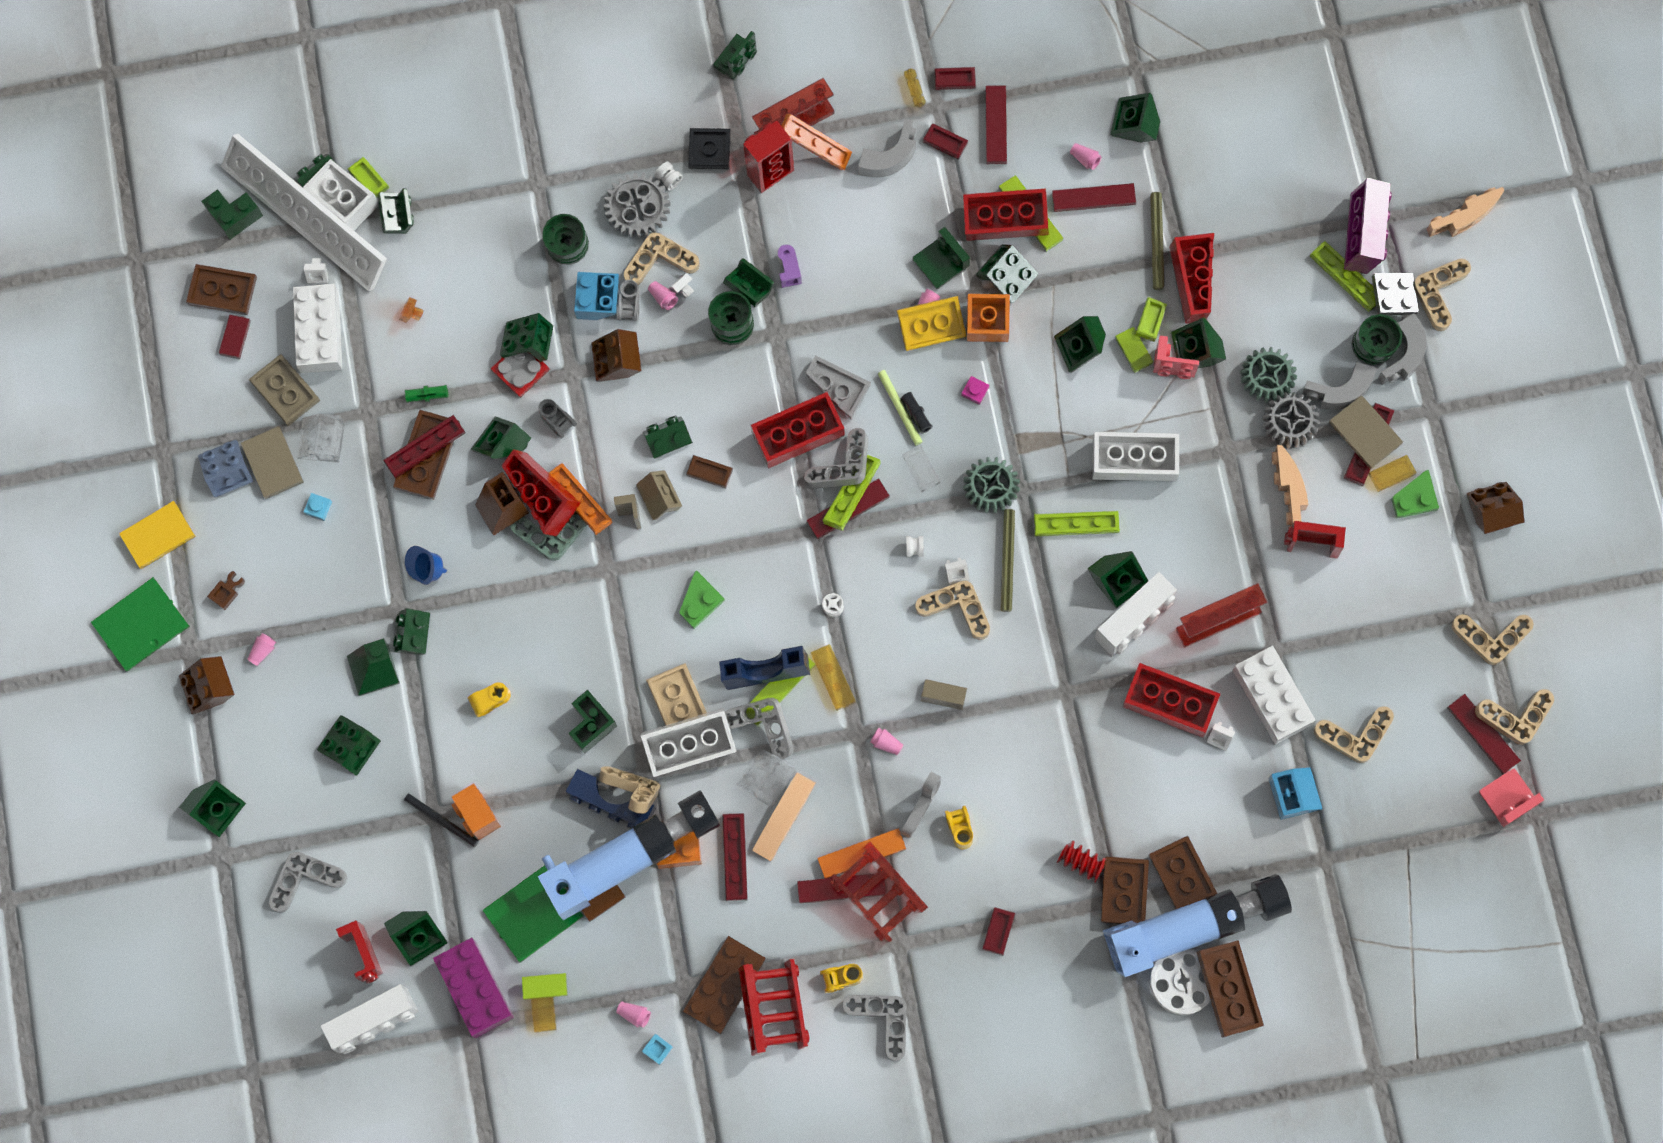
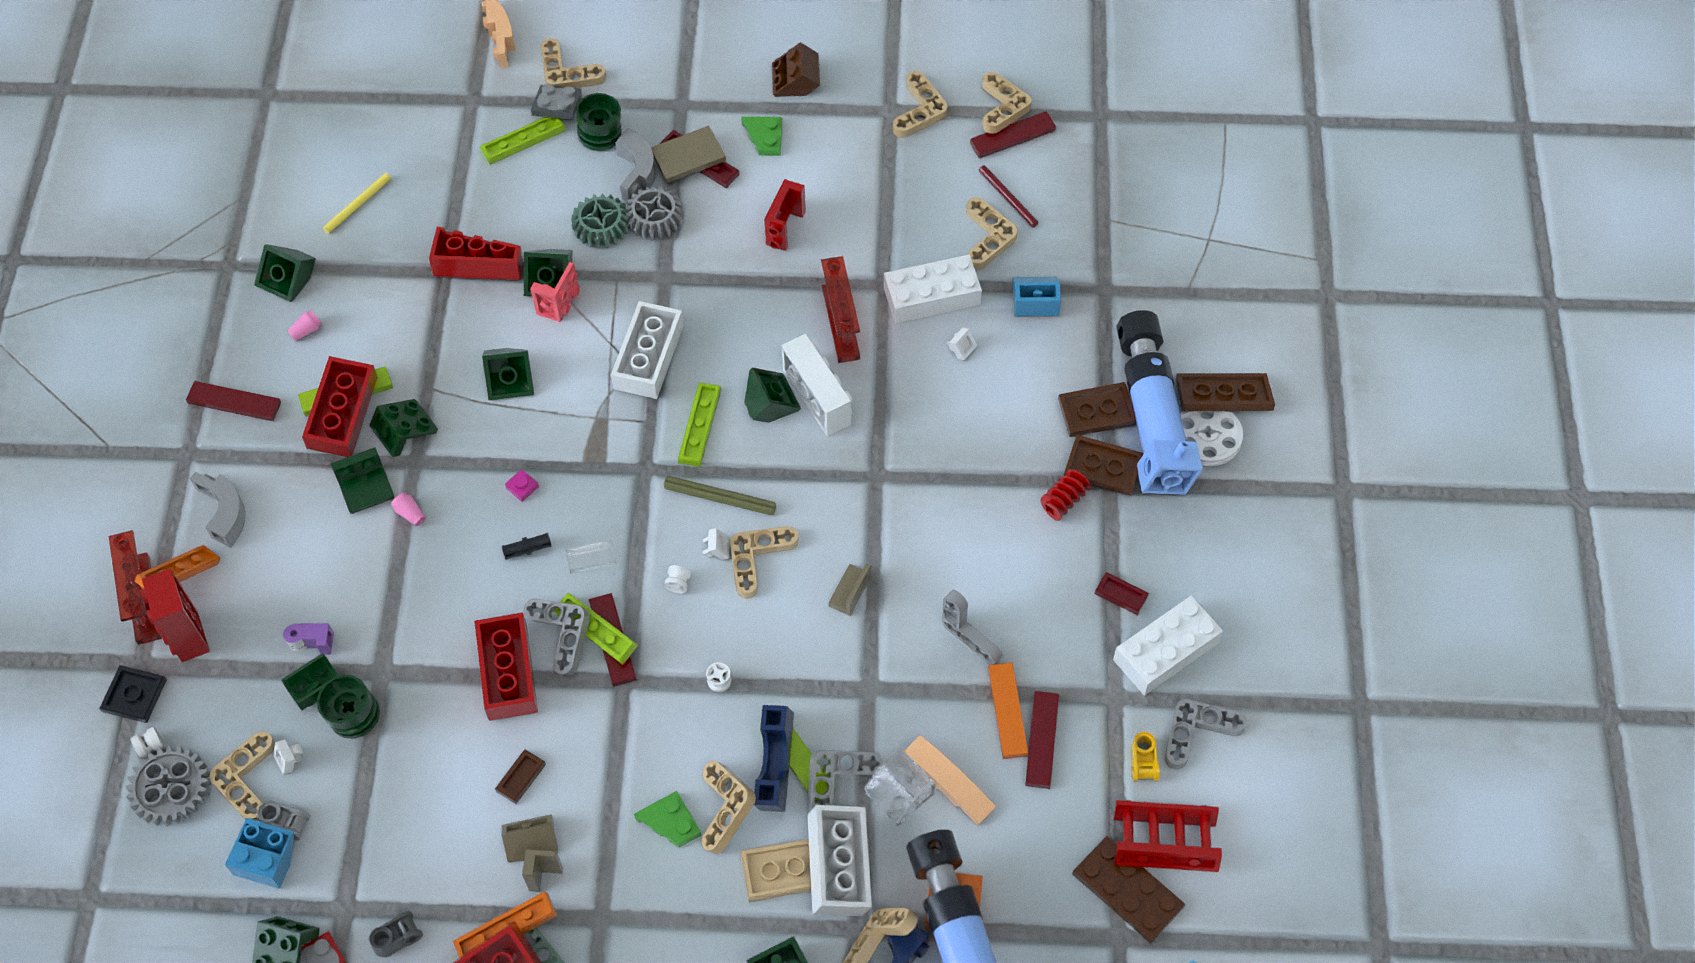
camera: 80 degrees left, 15 degrees down
(561, 228) = (168, 862): dark green wheel -> none
(616, 355) = (343, 849): reddish brown slope -> none
(665, 297) = (290, 780): bright pink cone -> none
(667, 436) = (462, 812): dark green bracket -> none
(722, 648) = (733, 800): none -> tan beam
(735, 857) = (991, 846): dark red tile -> none
(736, 54) = (35, 638): dark green bracket -> none
(833, 677) = (803, 695): clear yellow tile -> none
(842, 386) = (459, 619): light grey wing -> none
(883, 872) = (1056, 674): clear red fence -> none
(885, 741) = (887, 657): bright pink cone -> none
(900, 407) = (514, 562): yellowish green bar -> none
(914, 87) = (156, 468): clear yellow axle -> none
(931, 323) = (432, 508): yellow tile -> none
(945, 141) = (230, 453): dark red tile -> none
(953, 979) = (1167, 645): none -> white brick
(955, 78) = (163, 428): dark red tile -> none
(959, 823) = (1000, 603): yellow piece -> none
(984, 480) = (632, 502): sand green gear -> none
(988, 317) = (447, 450): orange brick -> none
(1094, 197) = (354, 325): dark red tile -> none
(1134, 350) = (530, 331): lime tile -> none
(1151, 319) = (504, 307): lime tile -> none
(1157, 240) = (422, 284): olive axle -> none
(1171, 700) = (914, 375): red brick -> none
(1231, 154) = (354, 205): none -> light yellow bar
(1290, 480) = (716, 226): light nougat slope -> none
(1367, 226) = (481, 101): brick -> none
(1392, 473) = (735, 146): clear yellow tile -> none
(1408, 743) = (1011, 199): none -> dark red bar
(1414, 349) = (629, 102): light grey arch -> none
(1509, 797) = (1083, 126): coral bracket -> none

